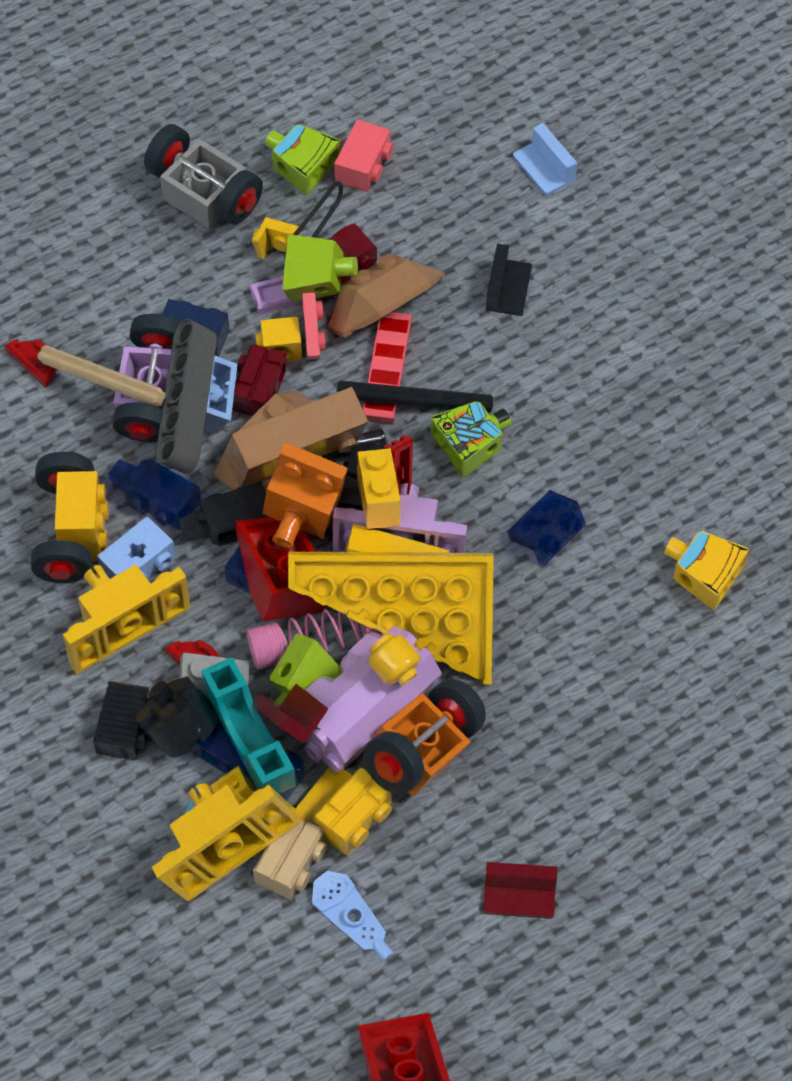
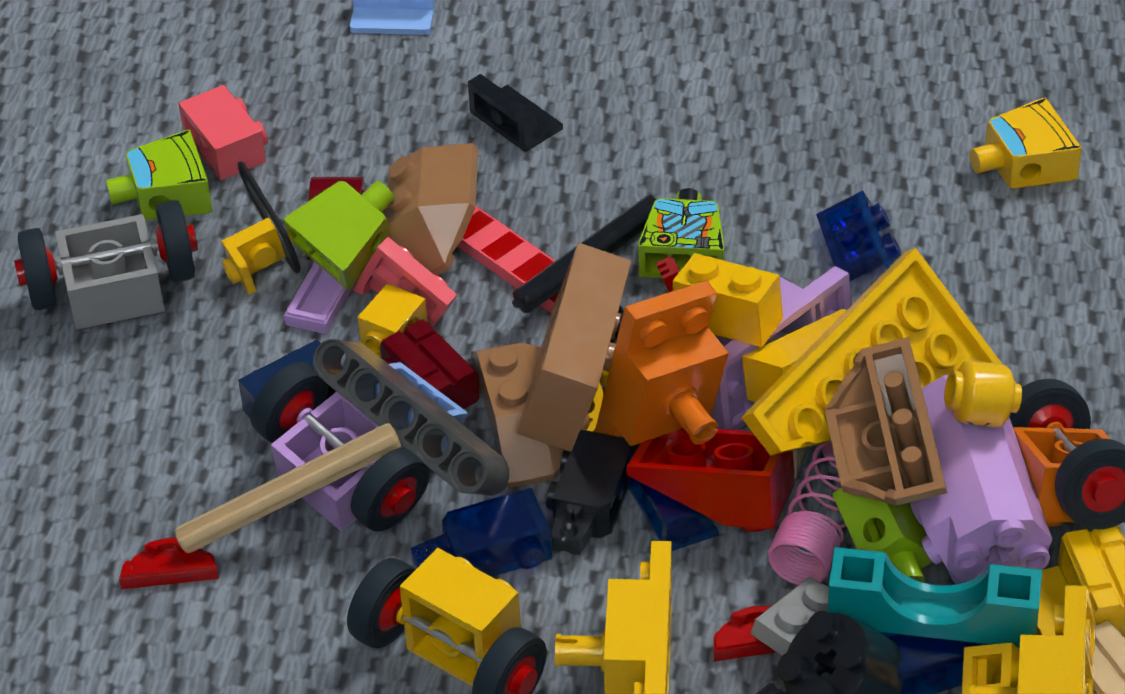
camera: 50 degrees left, 15 degrees down
(142, 546) = (562, 597): light blue brick -> none
(296, 715) = (957, 535): dark red panel -> none
(333, 633) = (884, 428): none -> medium nougat wedge

